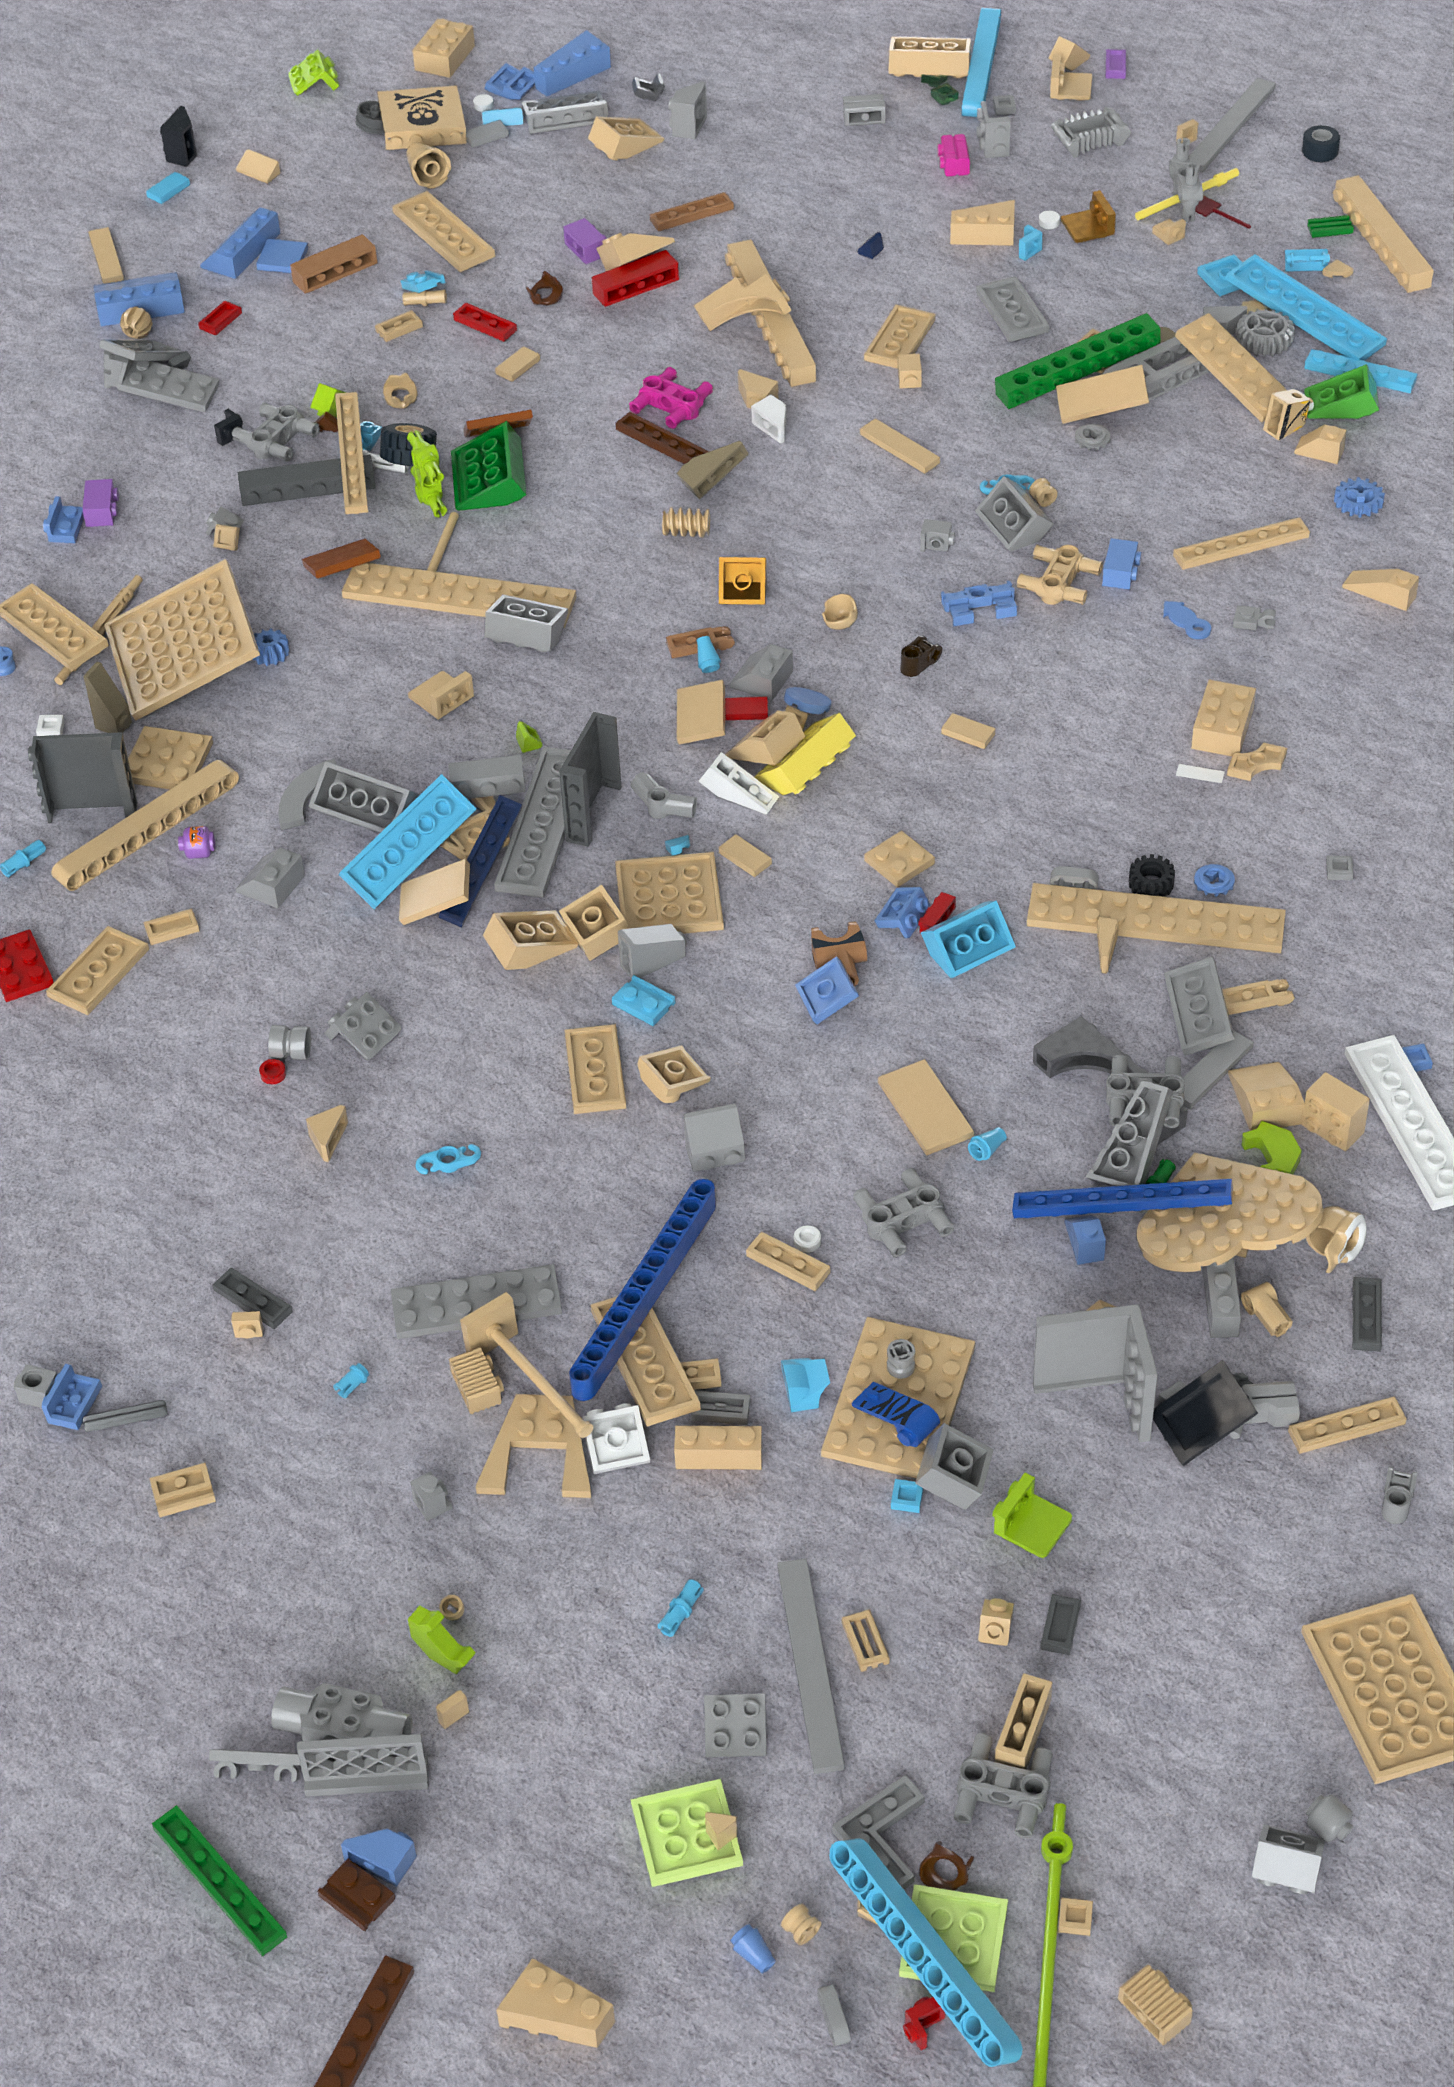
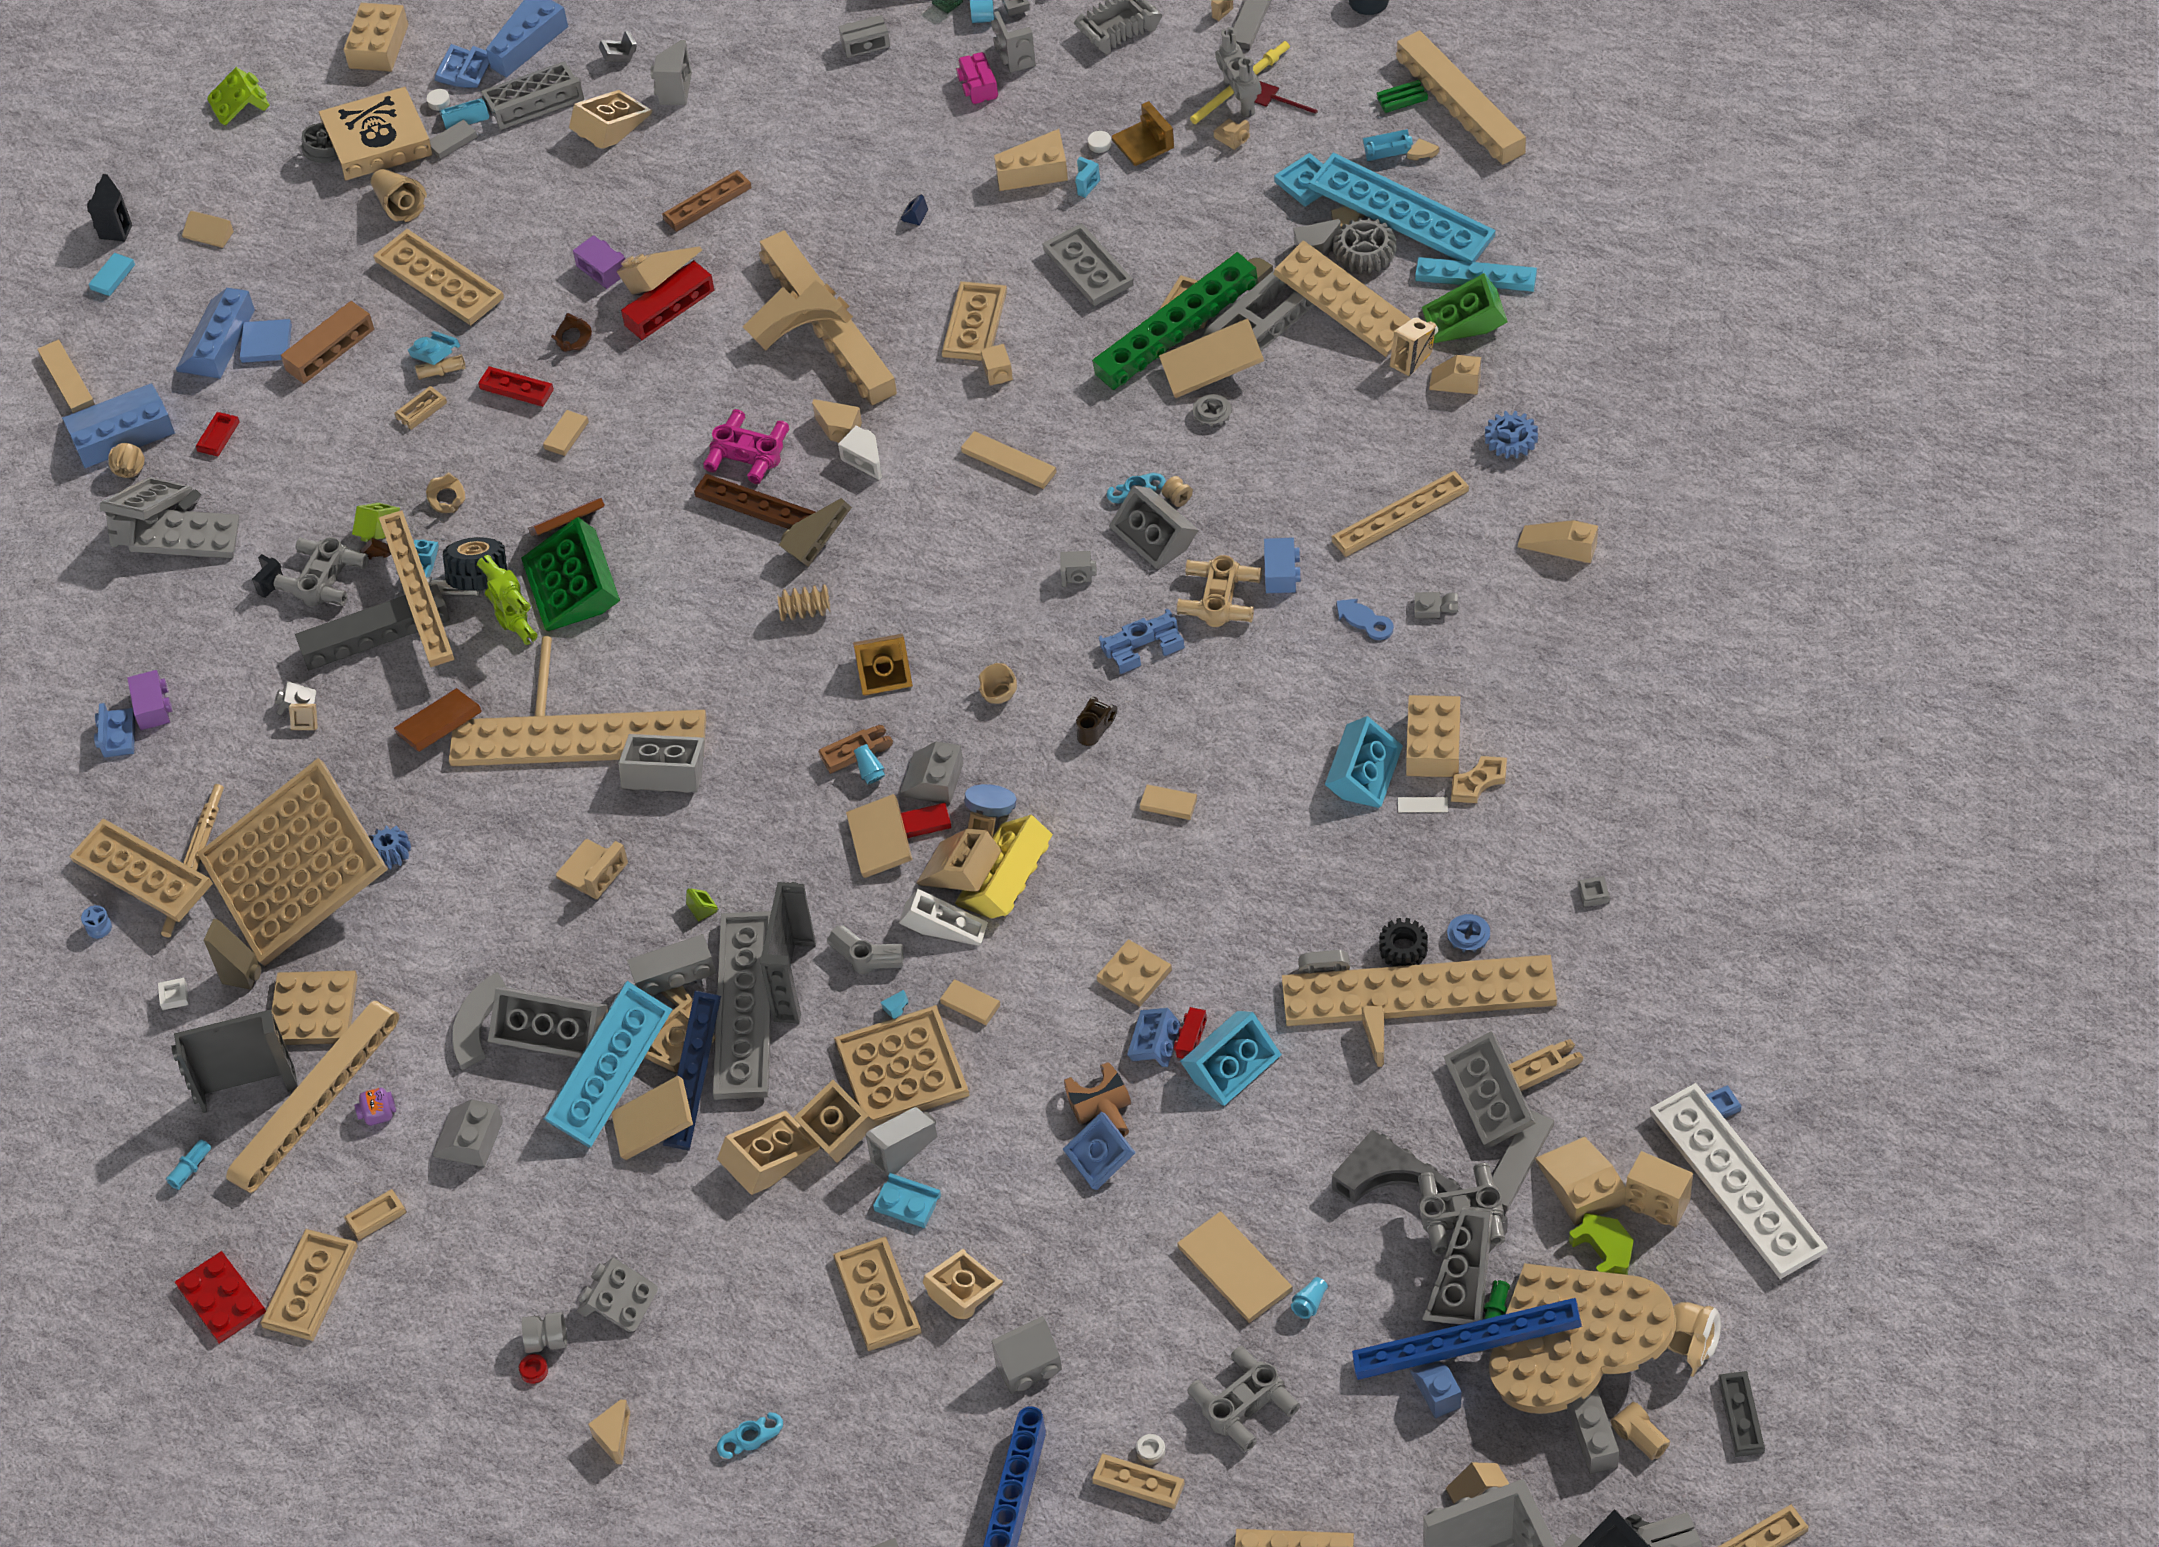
camera: 10 degrees left, 5 degrees up
(1154, 729) = (1364, 763): none -> medium azure slope

